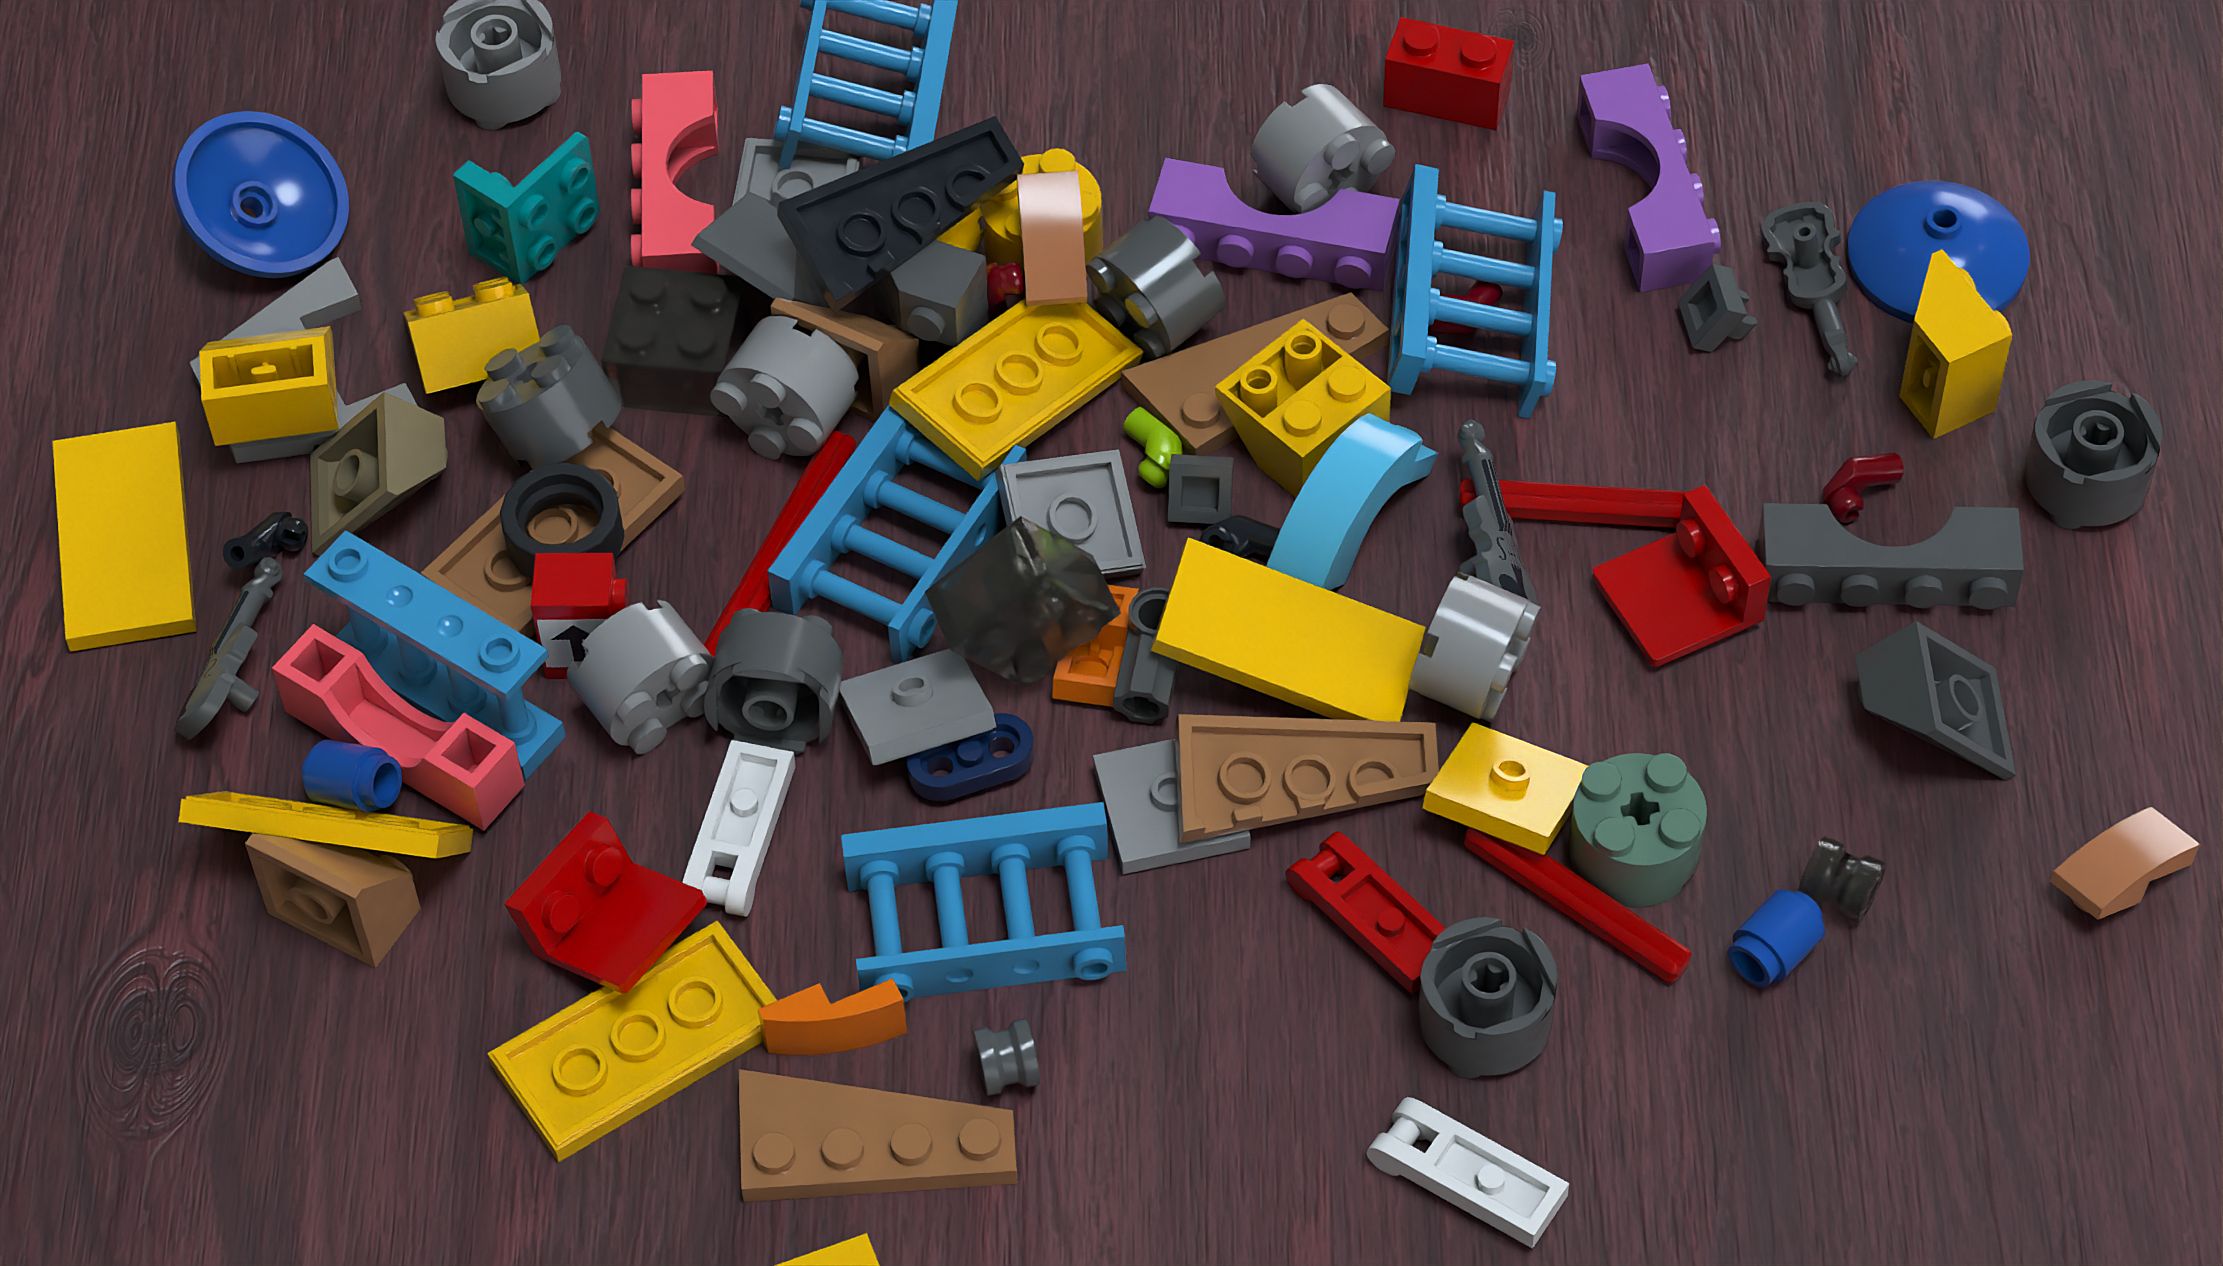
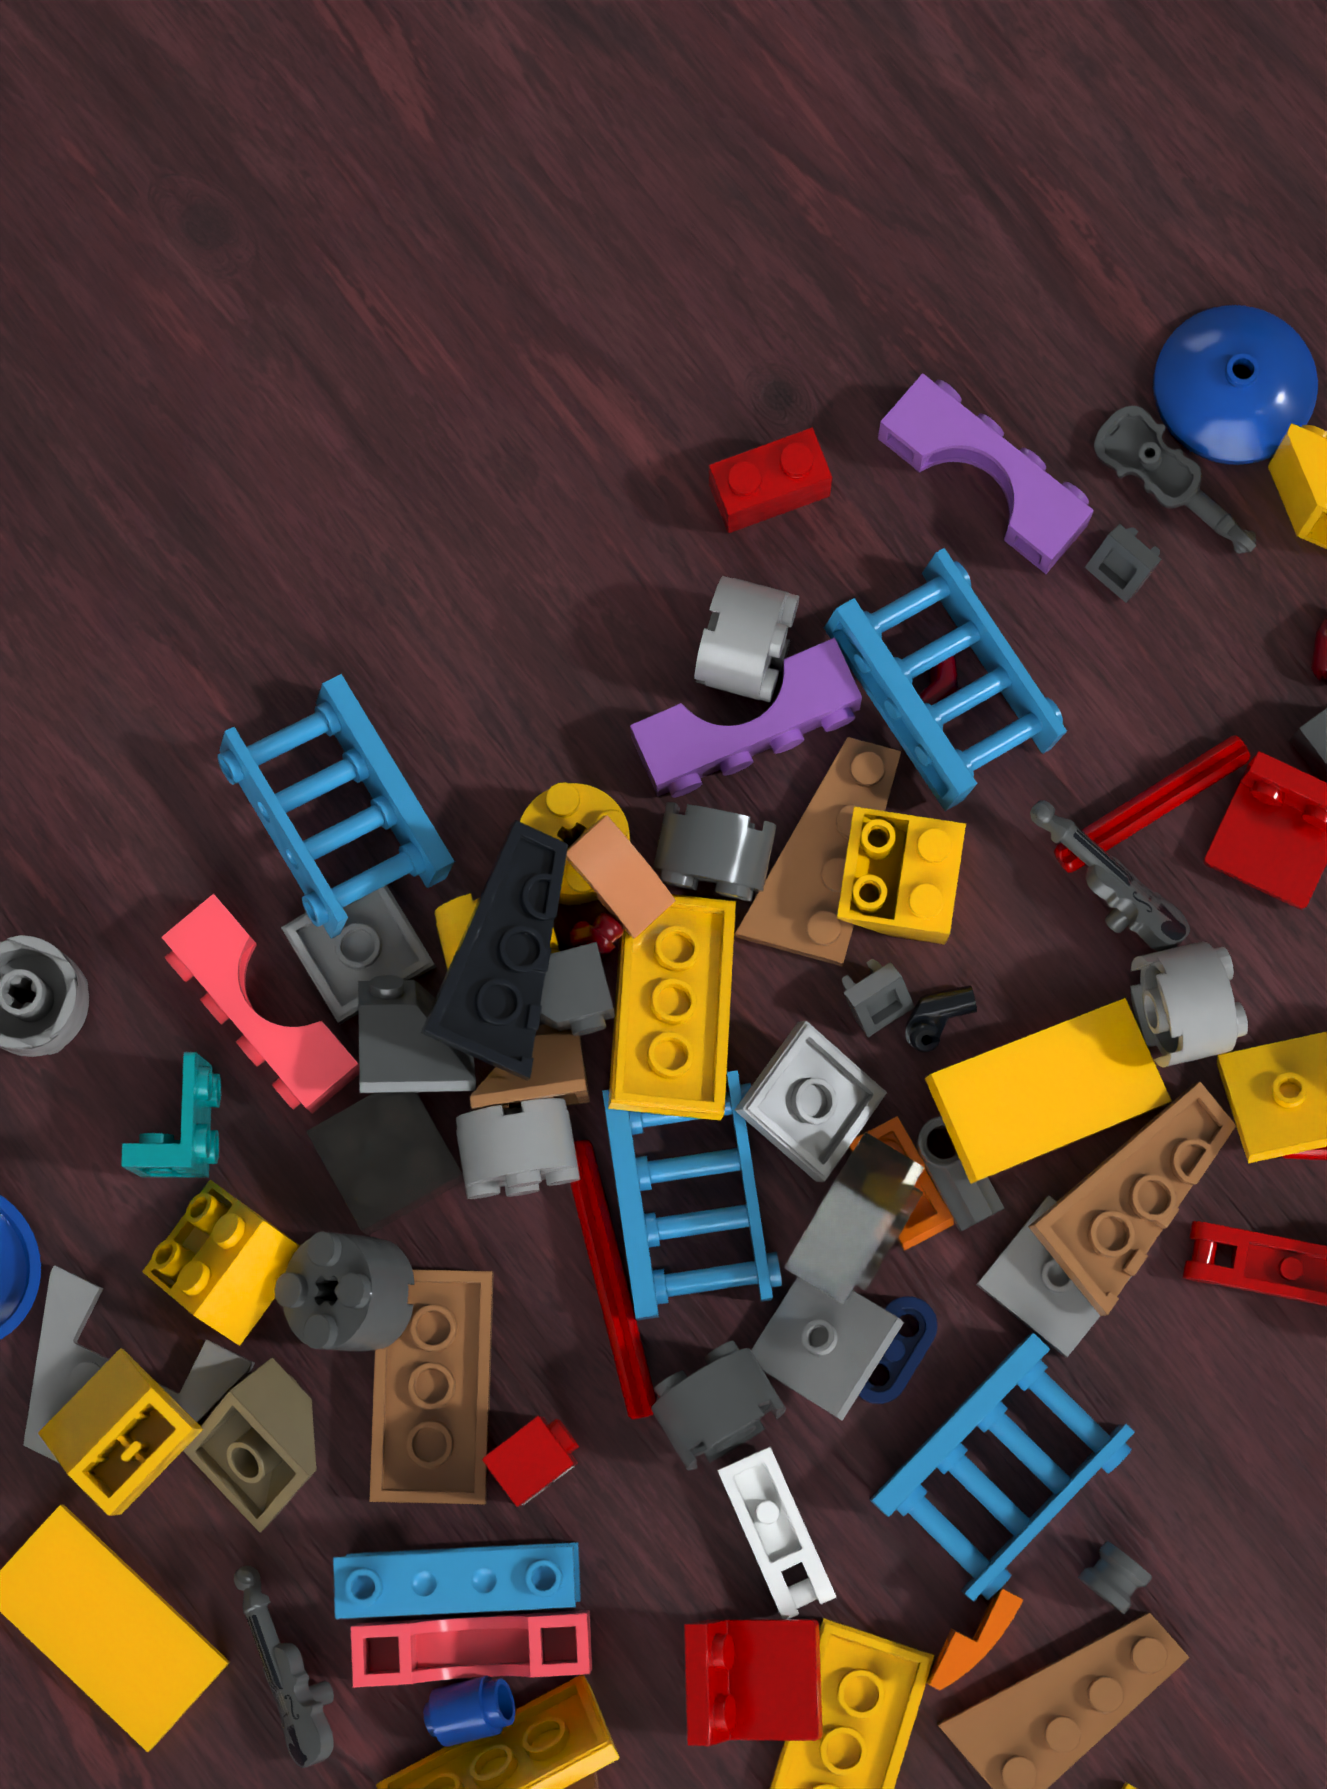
camera: 35 degrees left, 25 degrees up
(266, 540) = (219, 1558): black arm -> none
(557, 486) = (409, 1380): black tyre -> none
(642, 674) = (619, 1473): light grey brick -> none
(1158, 444) = (816, 977): lime arm -> none
(1344, 498) = (1002, 935): medium azure arch -> none

